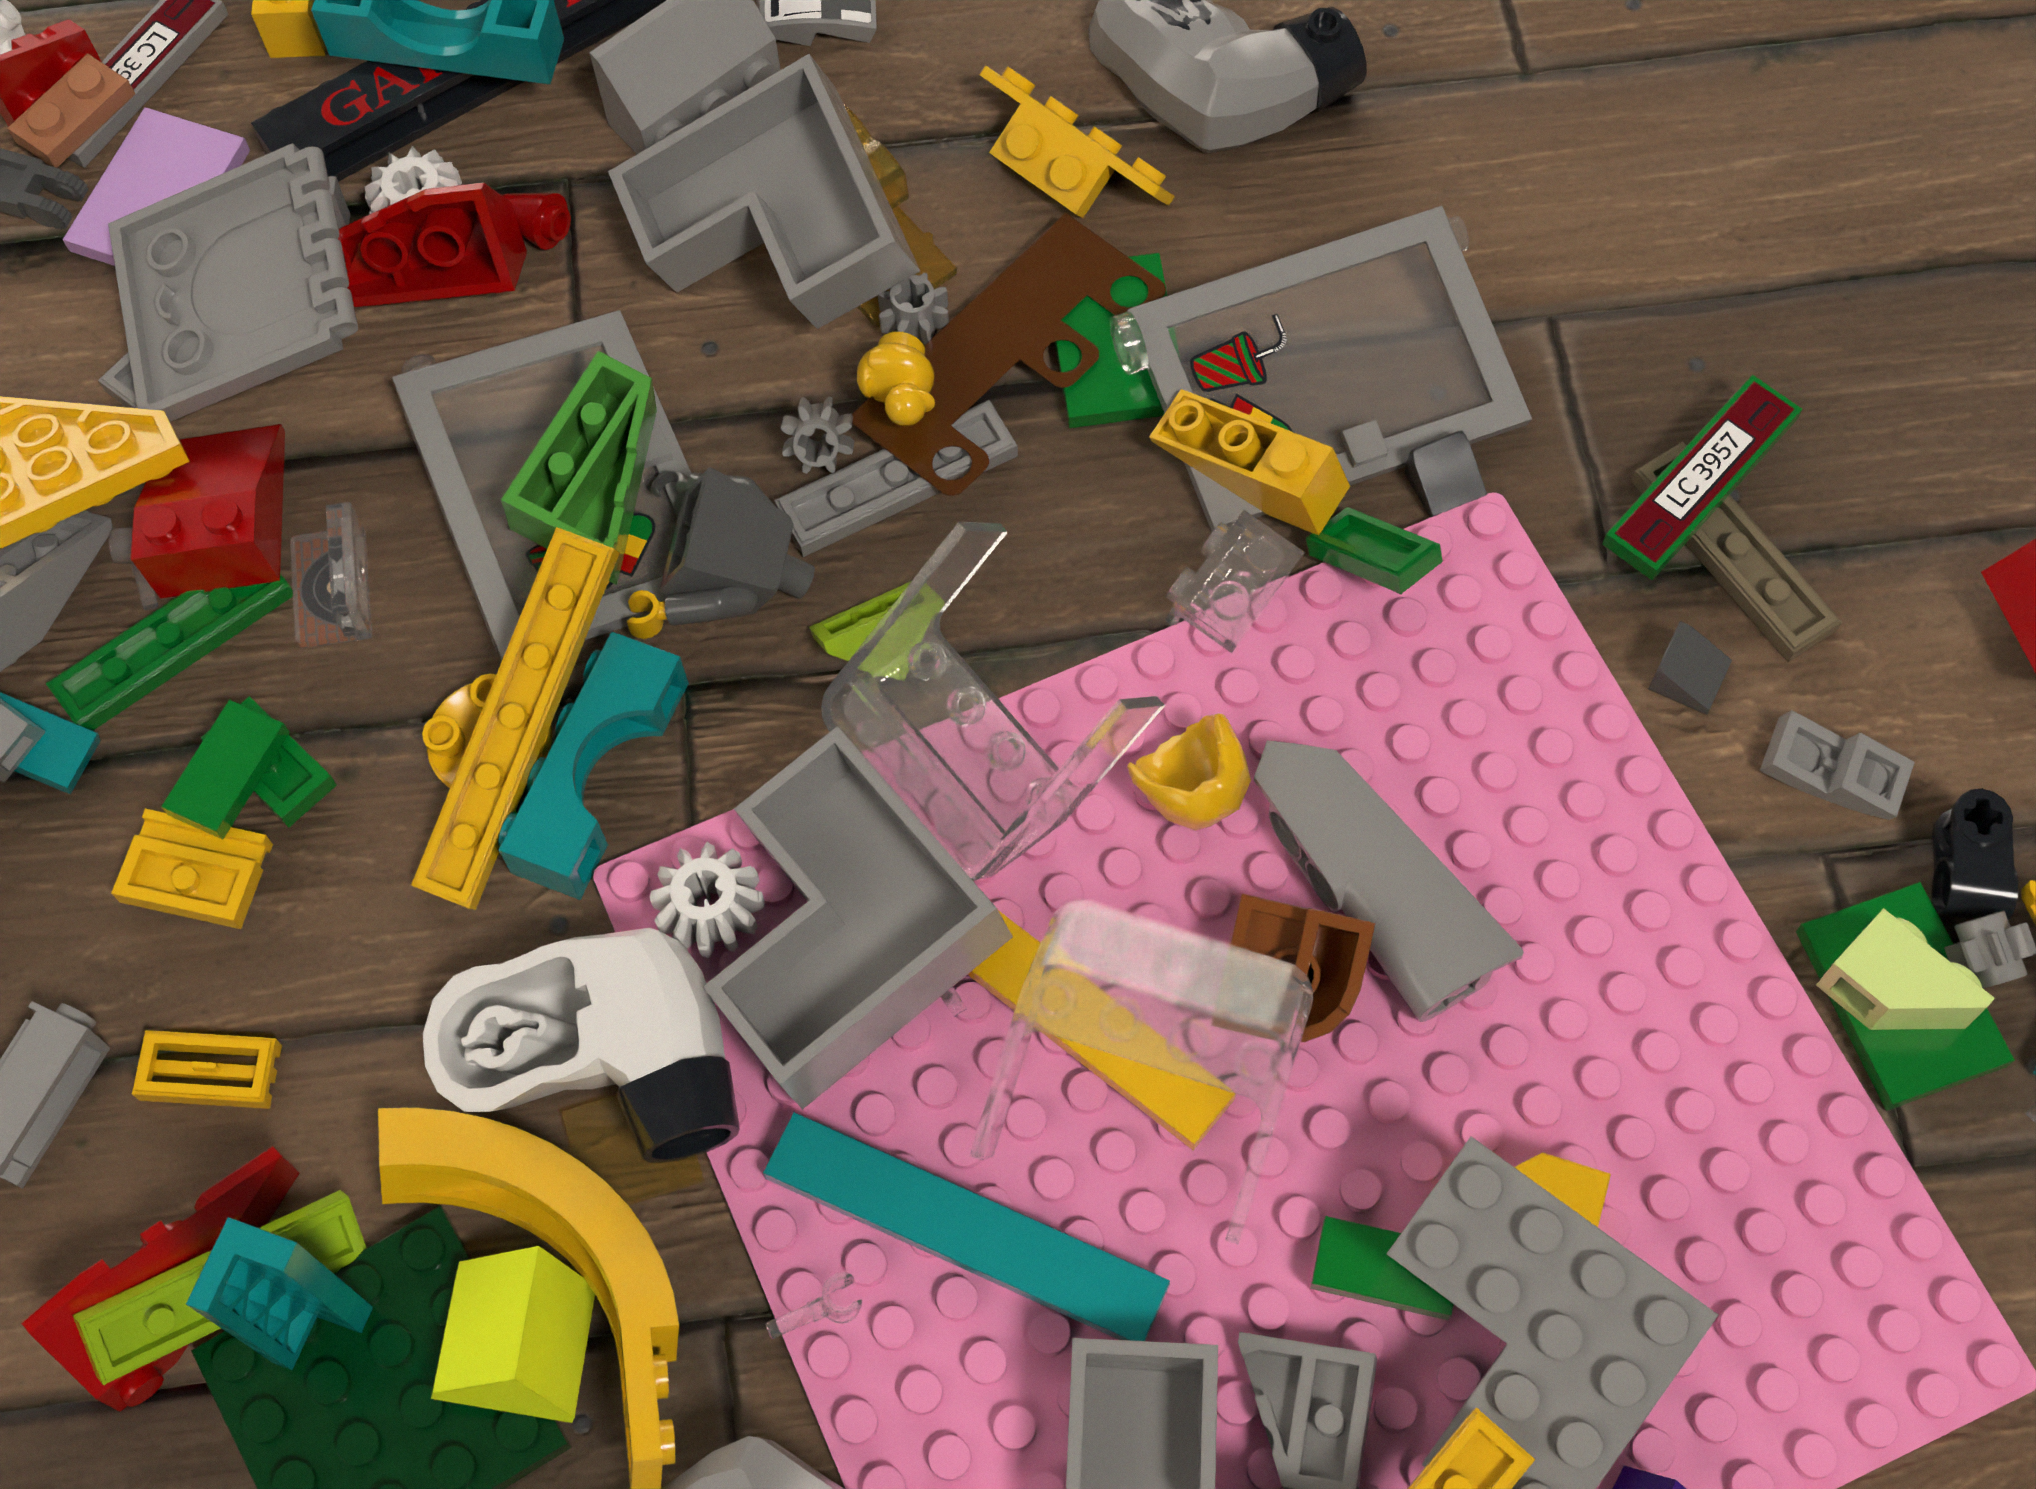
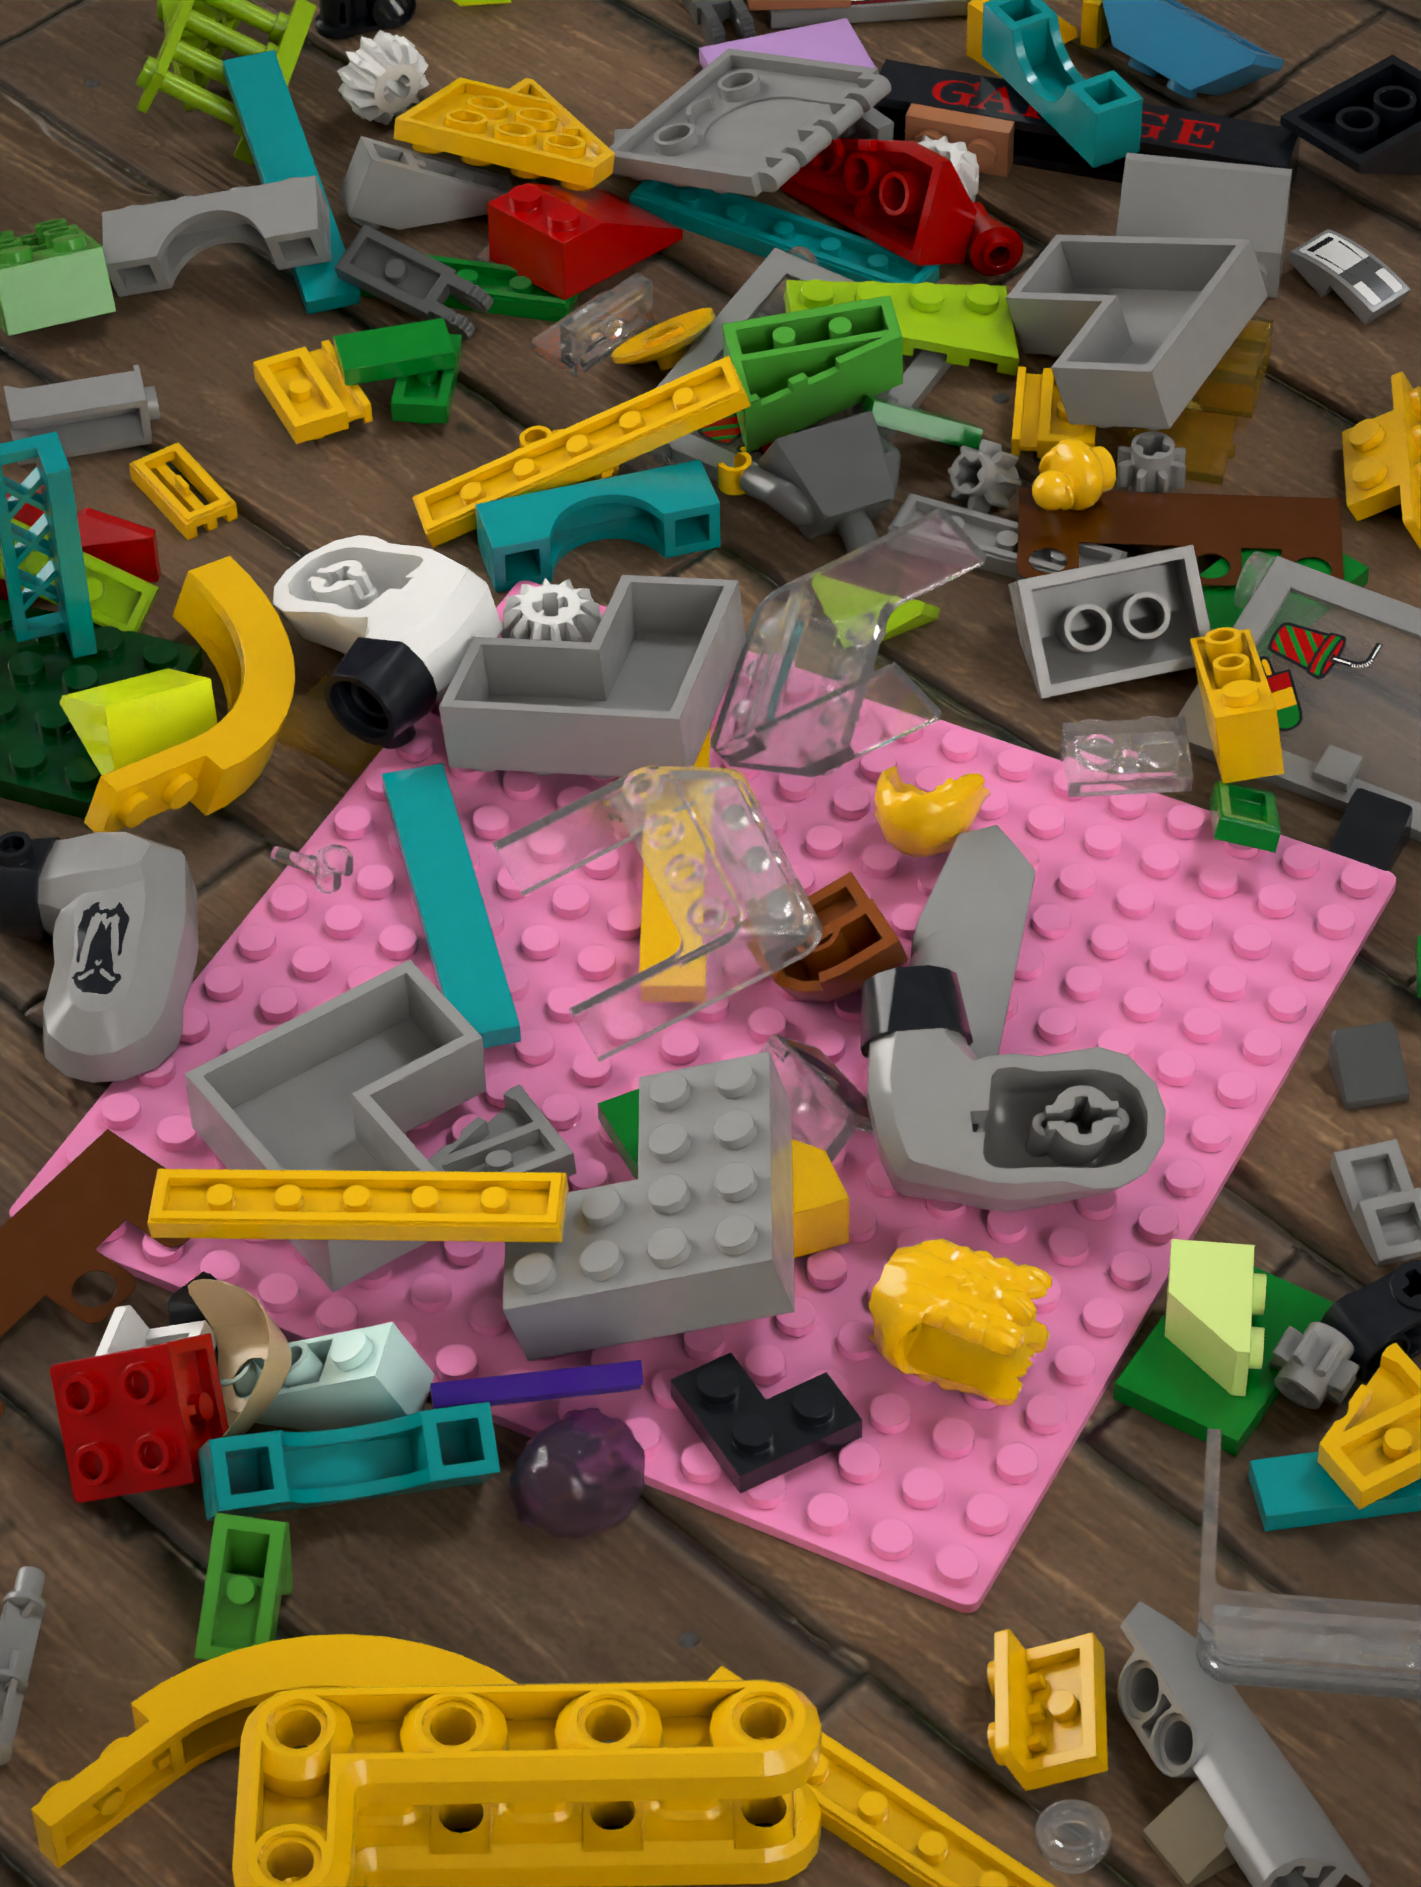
camera: 50 degrees right, 20 degrees down
(136, 687) = (410, 280): none -> dark grey hinge
(377, 353) = (762, 228): none -> teal tile
(395, 133) = (985, 136): none -> nougat plate
(411, 540) = (665, 341): none -> yellow dish
(605, 310) = (932, 317): none -> lime wing
(712, 432) = (922, 422): none -> tile
(776, 332) = (1041, 416): none -> yellow plate
(1069, 471) = (1110, 620): none -> light grey slope
(1437, 1105) = (822, 1099): none -> clear panel
(1619, 1002) = (995, 1126): none -> light grey piece
(1770, 1427) = (757, 1435): none -> black plate
(1799, 1187) = (959, 1318): none -> yellow piece

